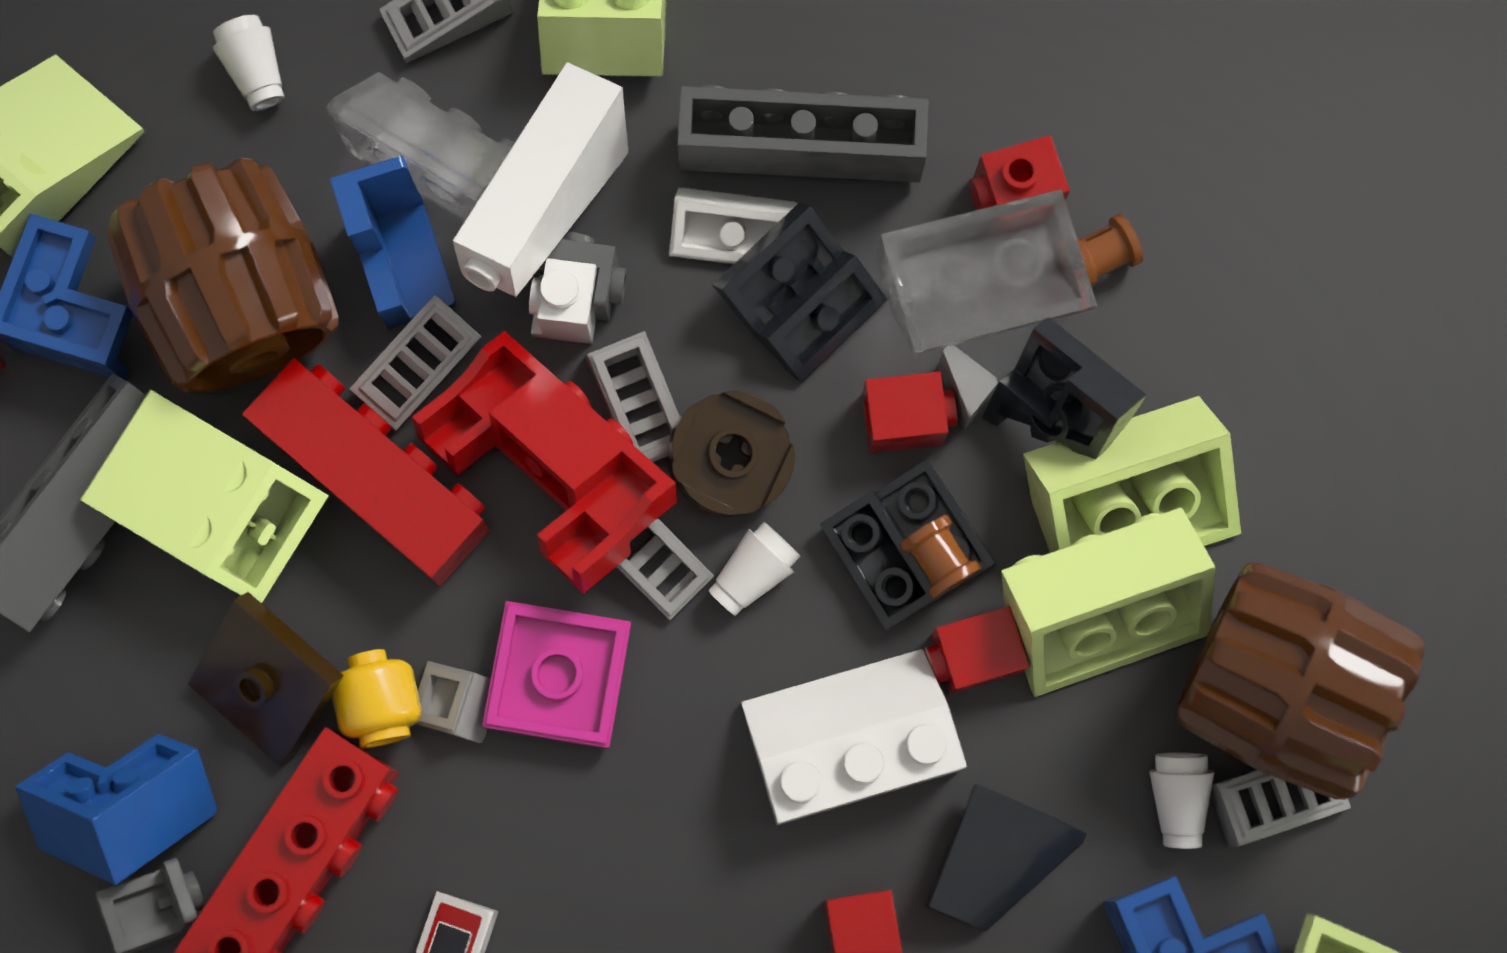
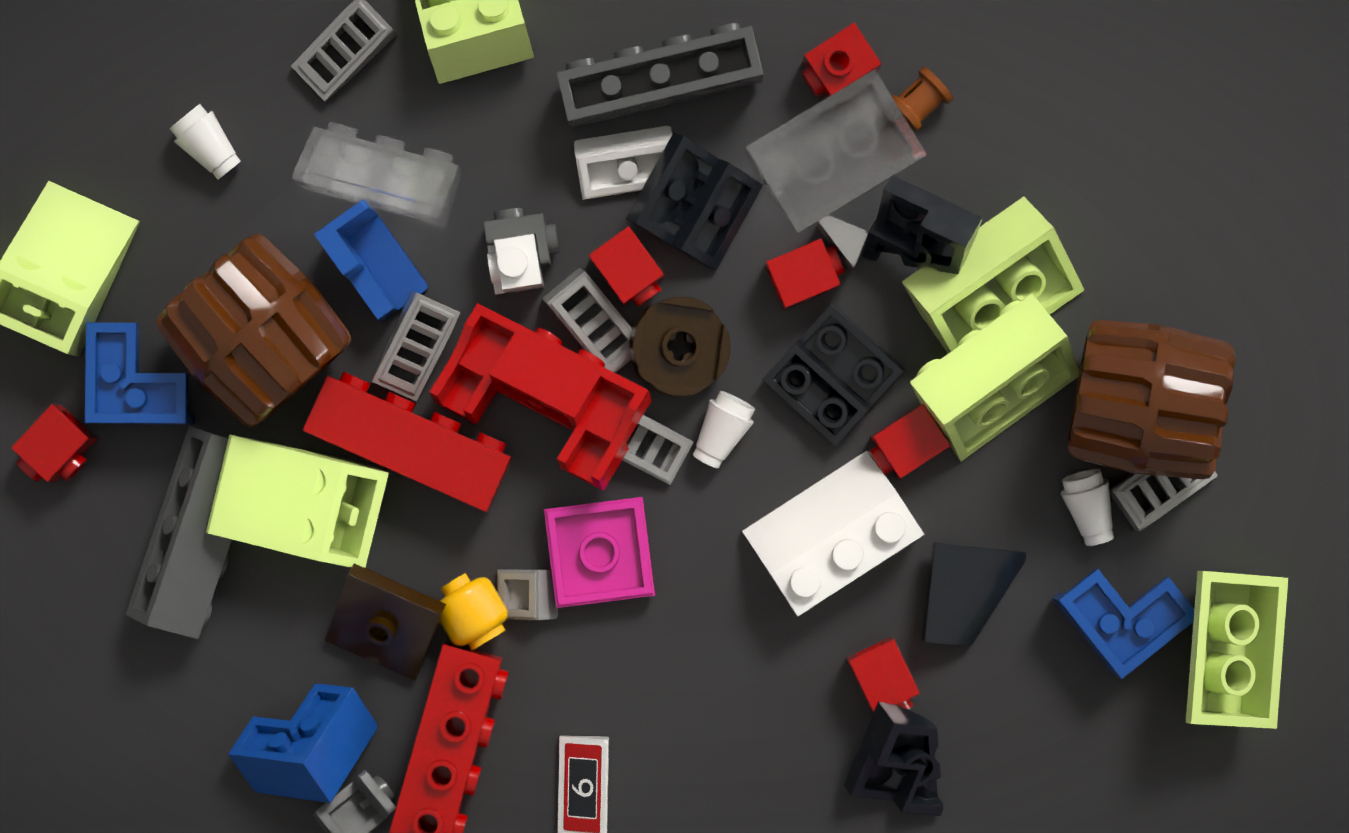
camera: 15 degrees left, 10 degrees up
(544, 181) = (475, 185): white slope -> none
(697, 344) = (628, 268): none -> red brick
(940, 556) = (861, 382): dark orange bush -> none

